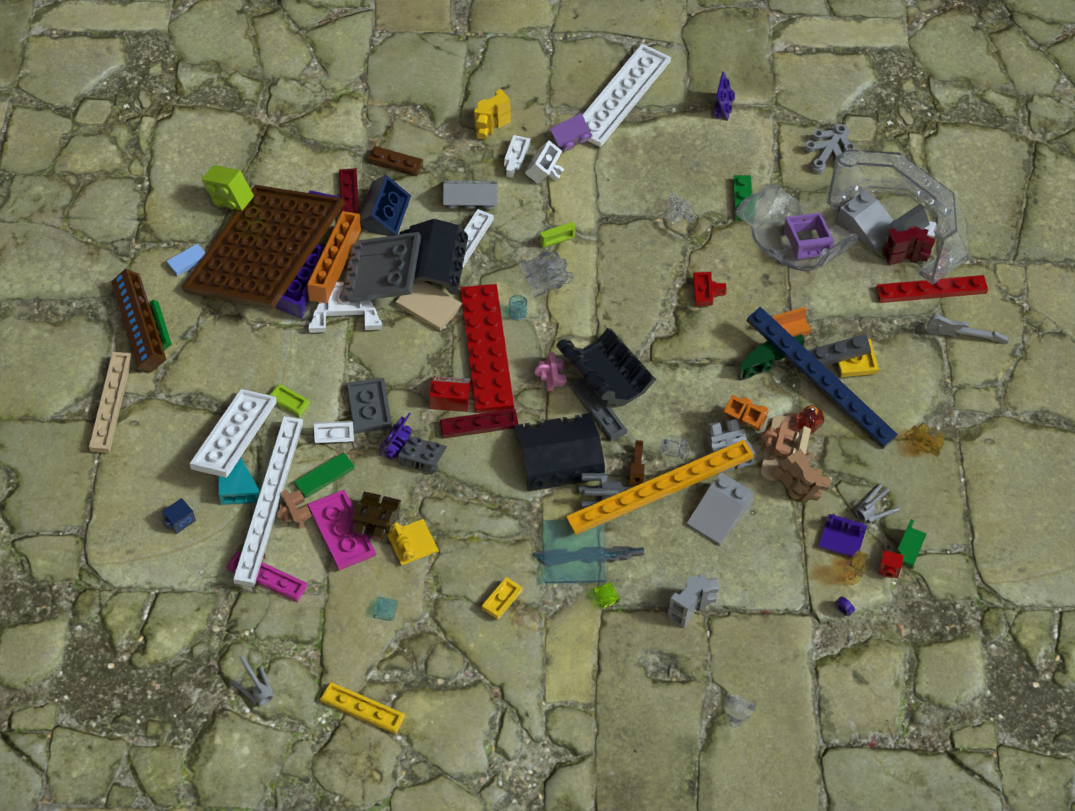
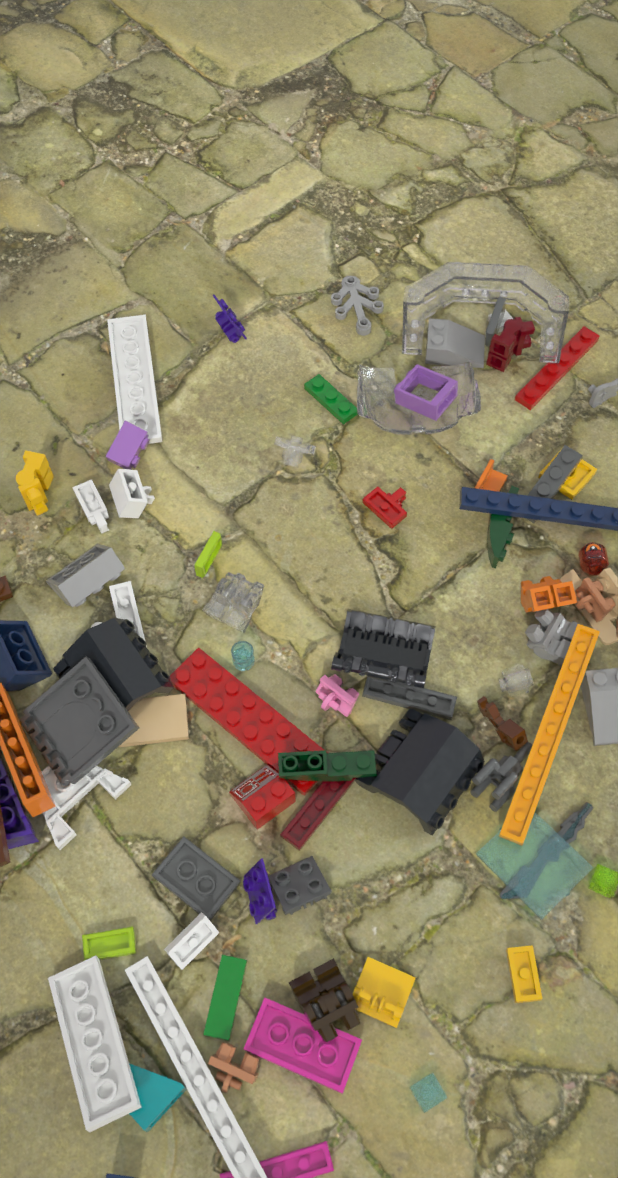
camera: 40 degrees left, 5 degrees up
(500, 401) = (326, 766): none -> dark green slope

